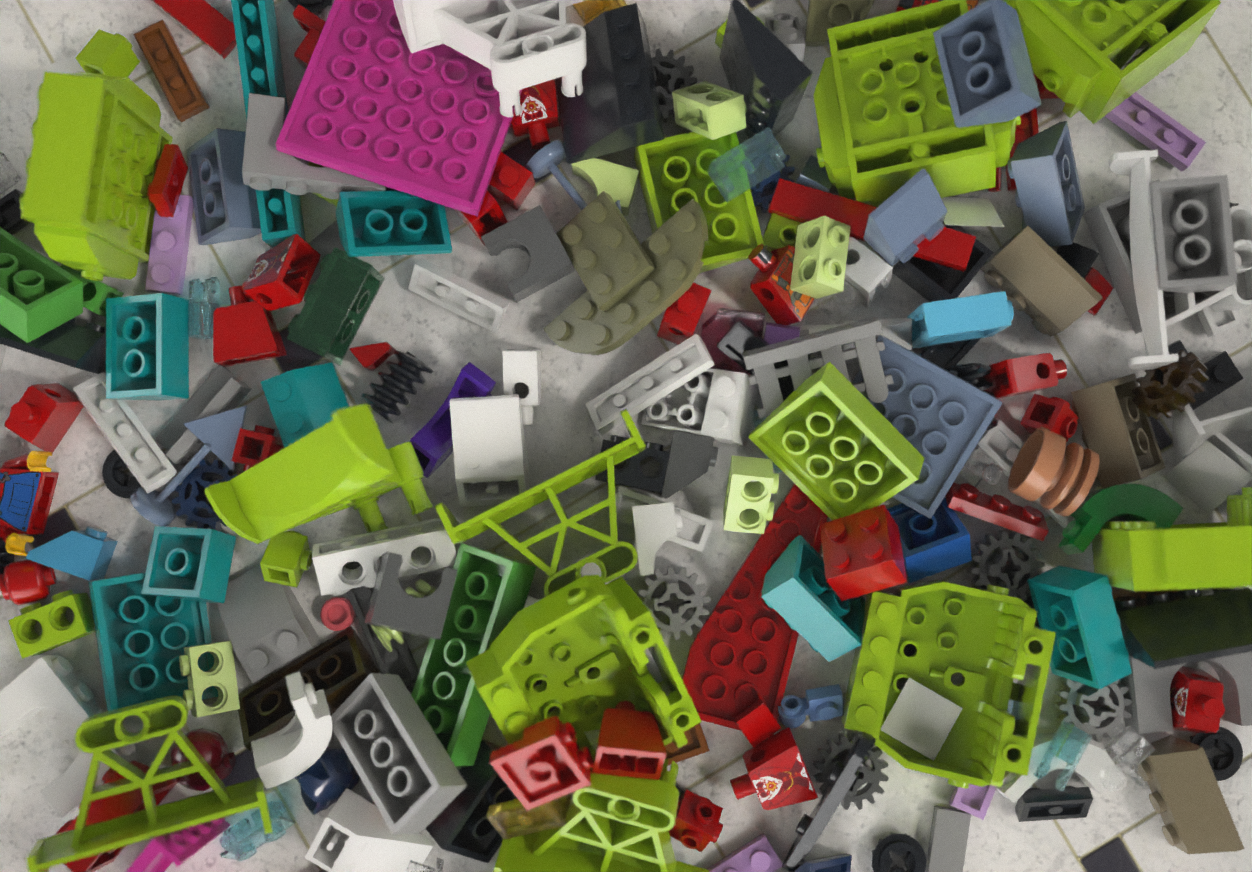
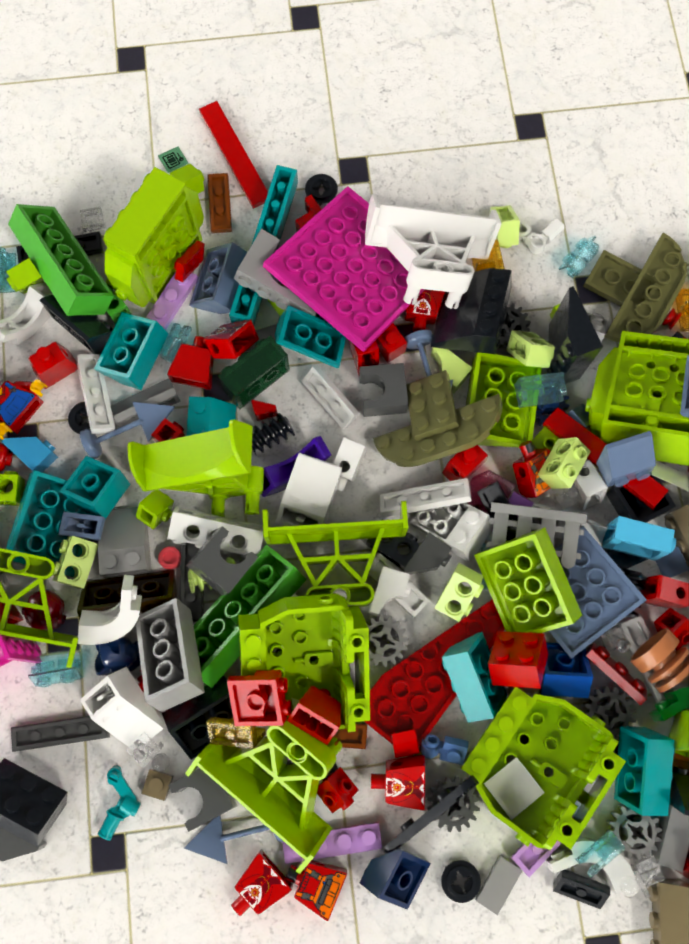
camera: 25 degrees right, 10 degrees down
(72, 31) = (173, 159): none -> clear green sticker
(196, 626) = (82, 526): none -> sand blue slope
(197, 501) = (117, 452): dark blue gear -> none
(1018, 333) = (672, 564): none -> sand blue sticker

